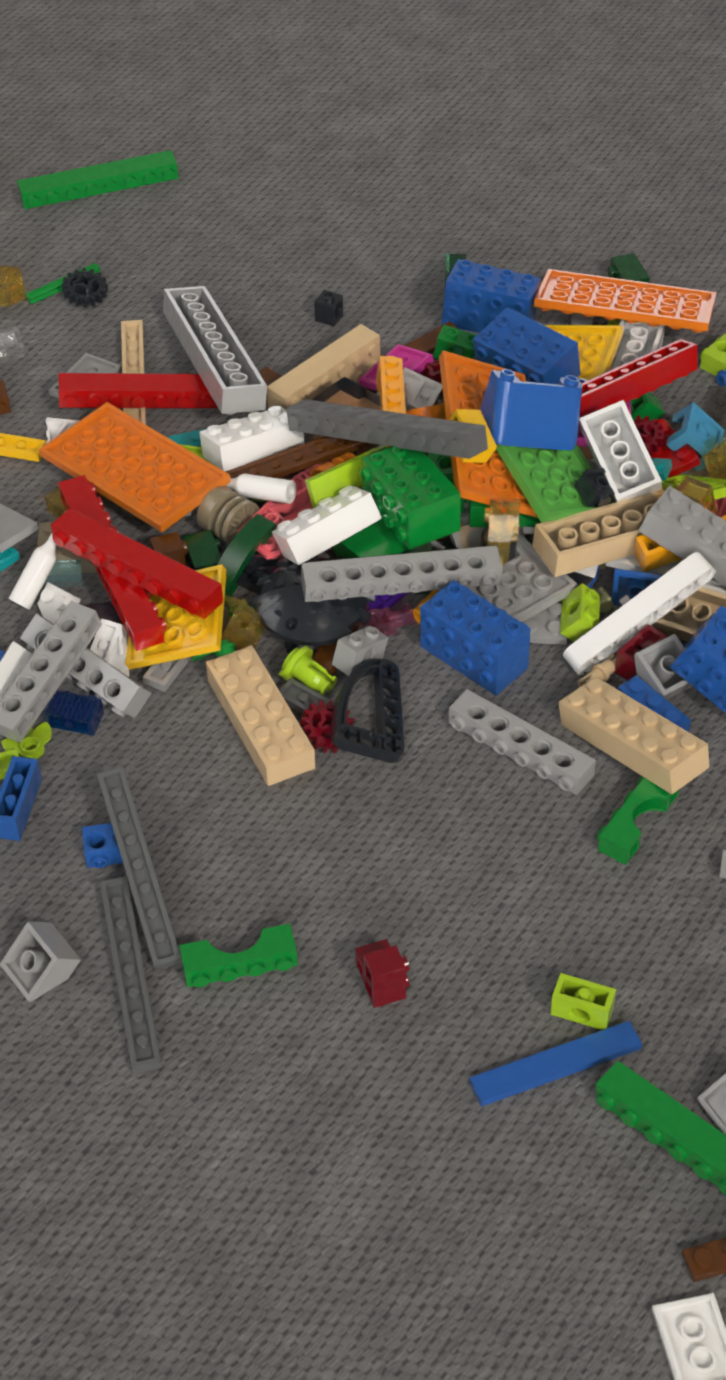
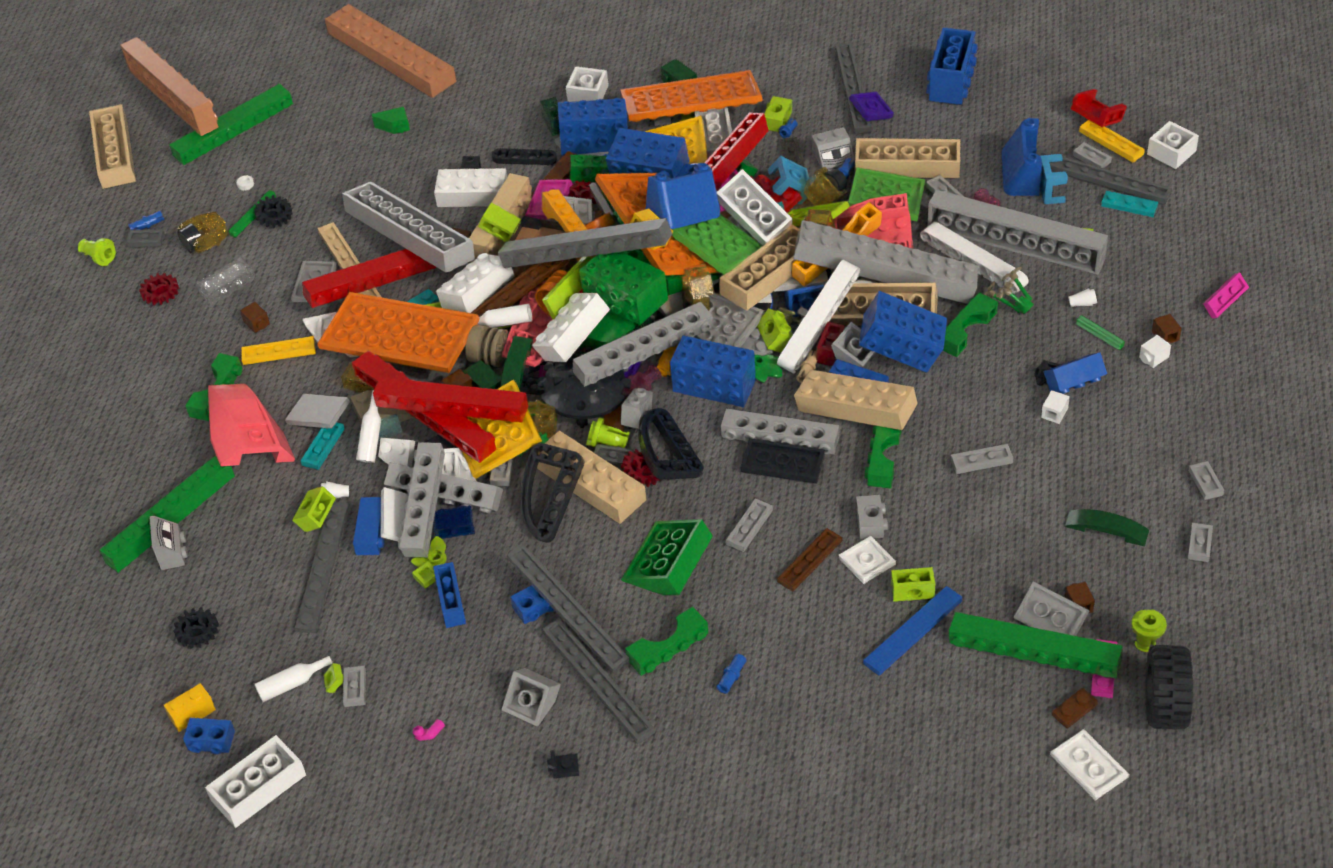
camera: 20 degrees left, 0 degrees up
(28, 1064) = (563, 765): none -> black bracket
(52, 118) = (170, 86): none -> nougat brick
(76, 247) = (245, 182): none -> white tile
(232, 687) = (559, 487): none -> black beam
(272, 227) = (391, 120): none -> green slope
(295, 1028) = (731, 673): none -> blue pin
(300, 849) = (668, 556): none -> green slope
(309, 325) = (468, 187): none -> white brick
(311, 373) = (499, 222): none -> lime brick
(315, 151) = (390, 50): none -> nougat brick
(382, 972) = (771, 614): dark red brick -> none
(420, 320) = (500, 156): none -> black beam
(420, 846) = (749, 525): none -> light grey plate
(473, 918) = (809, 559): none -> reddish brown tile
(506, 780) = (783, 460): none -> black plate
(514, 252) = (587, 84): none -> white brick
(545, 946) = (867, 559): none -> white tile
(548, 656) = (767, 366): none -> green plate
(577, 879) = (870, 516): none -> light grey brick
(594, 488) = (747, 239): black brick -> none

